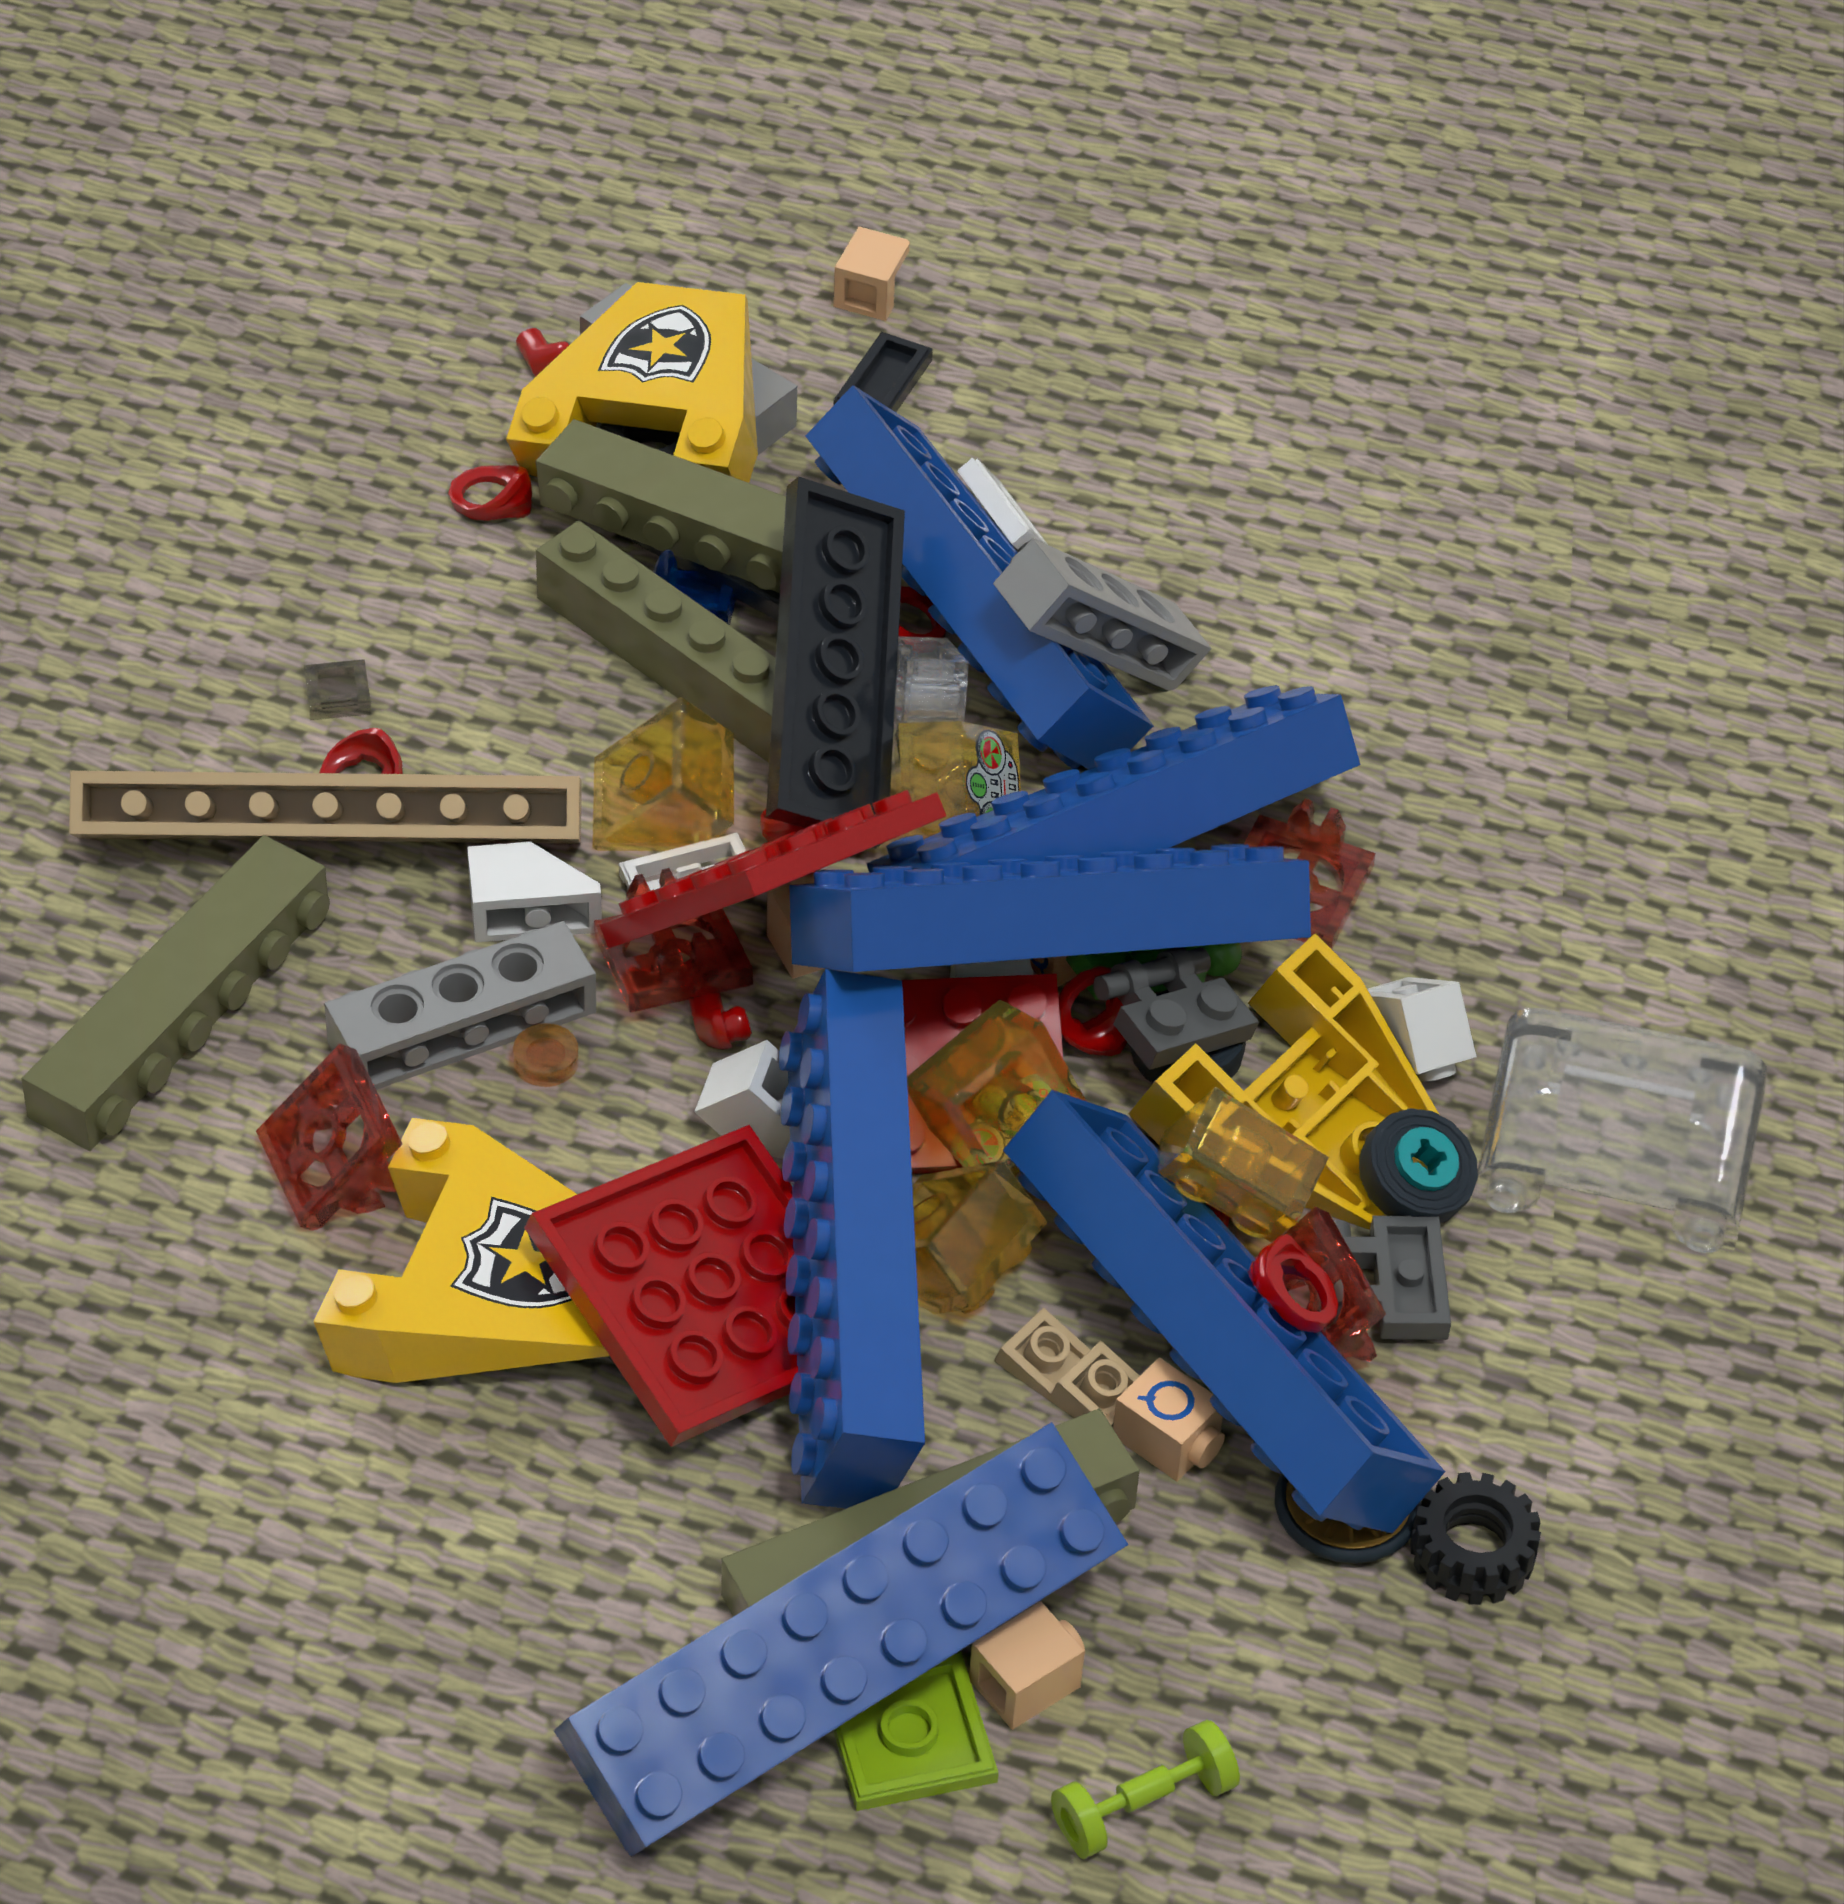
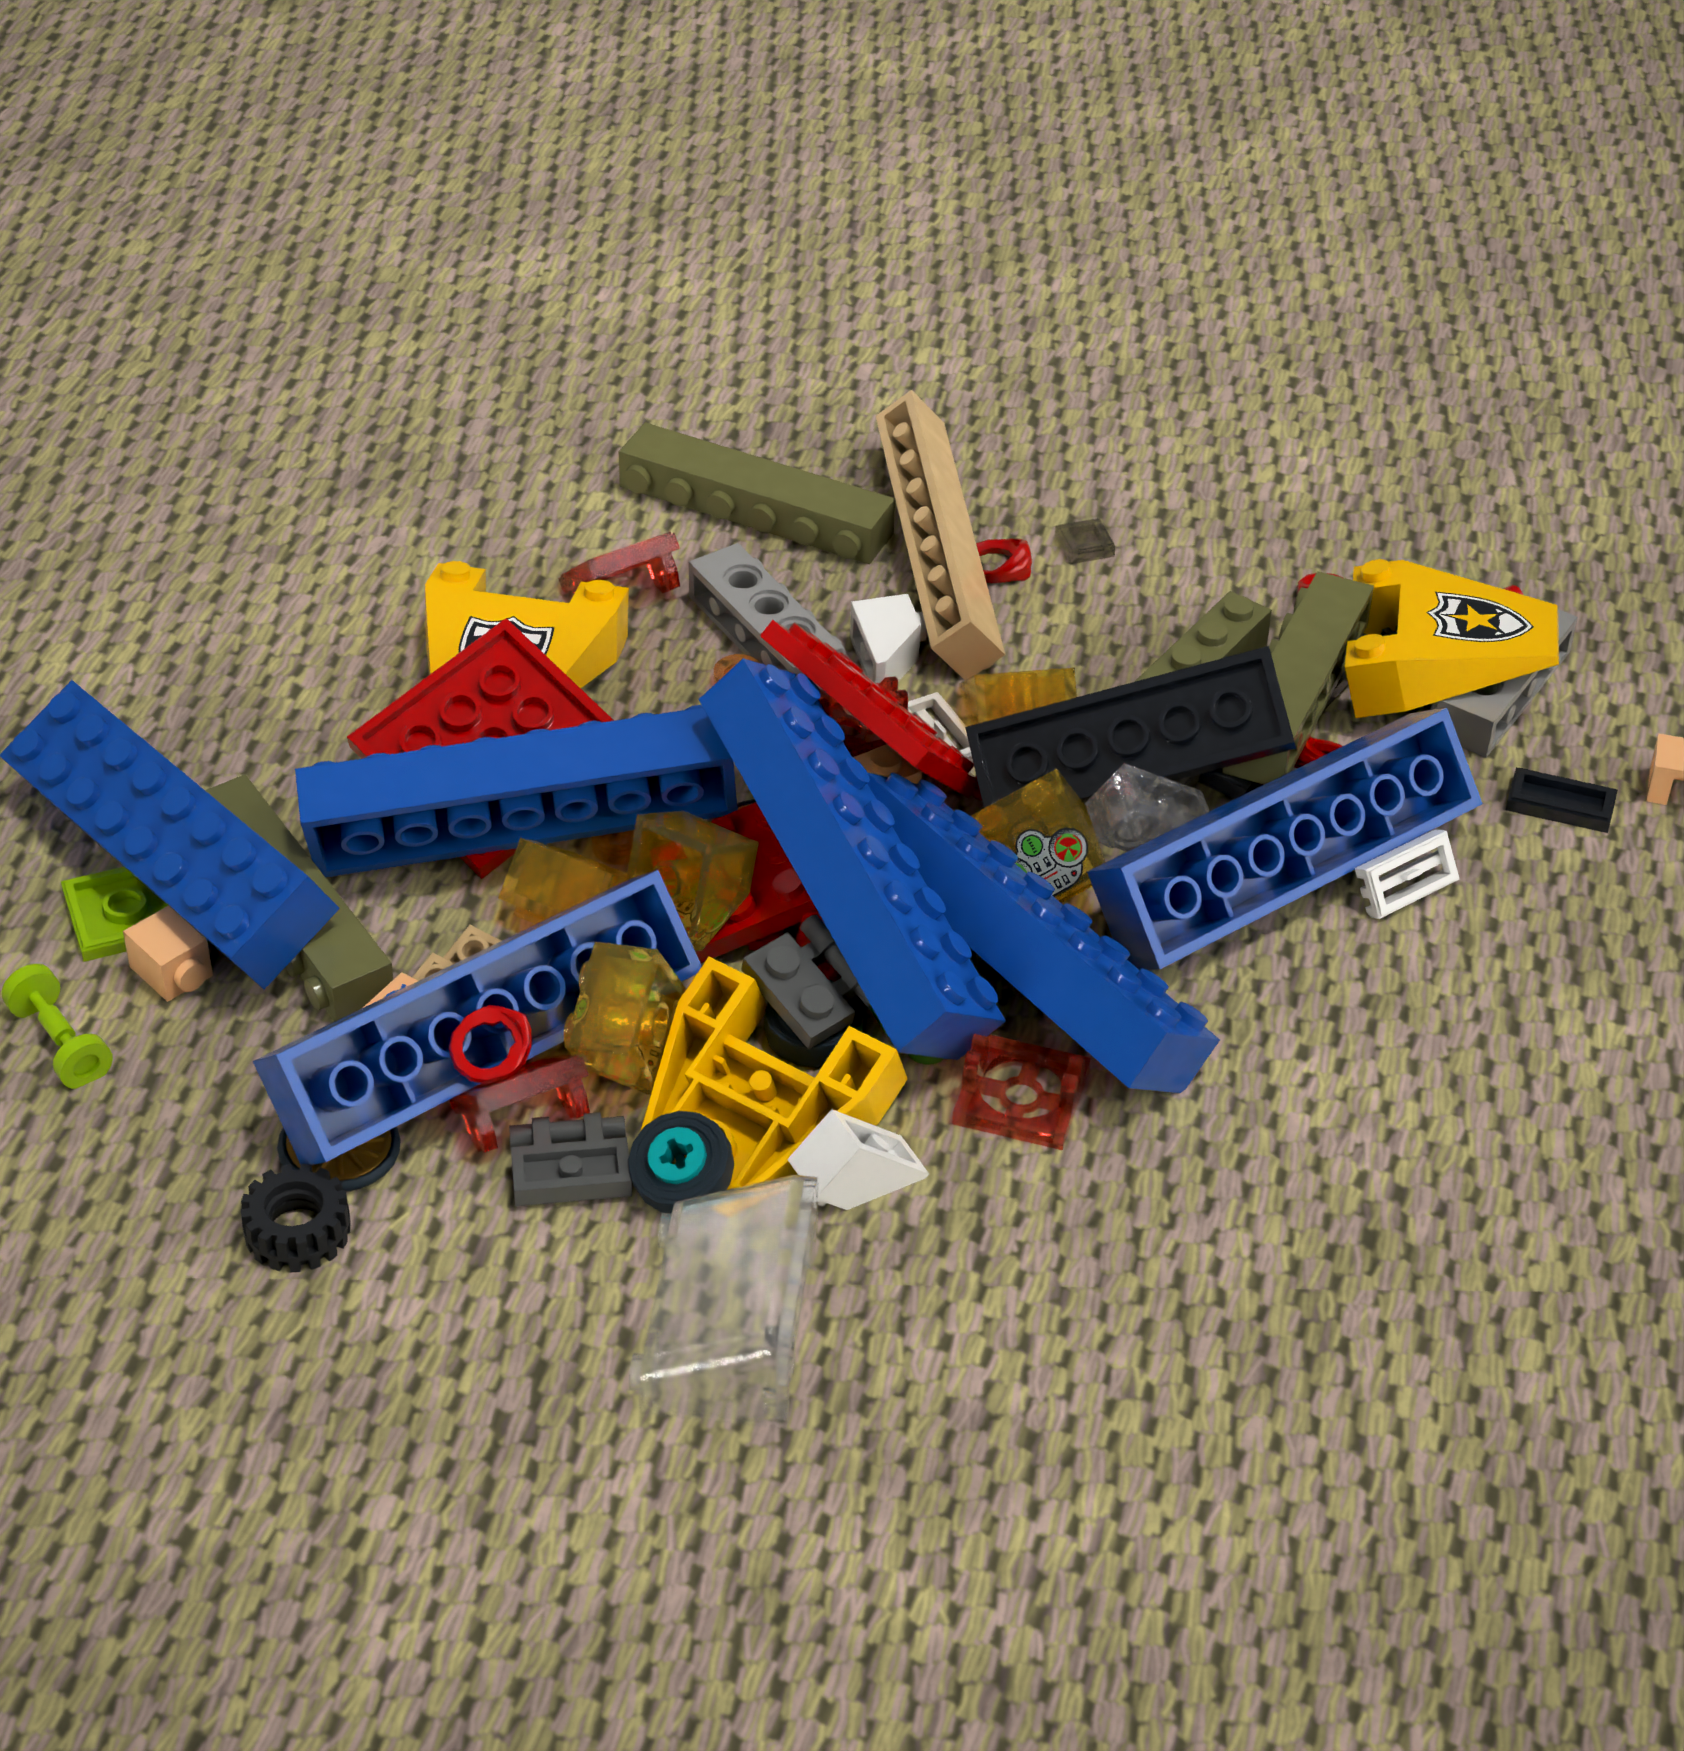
camera: 85 degrees right, 5 degrees down
(1101, 615) = (1216, 882): light grey brick -> none

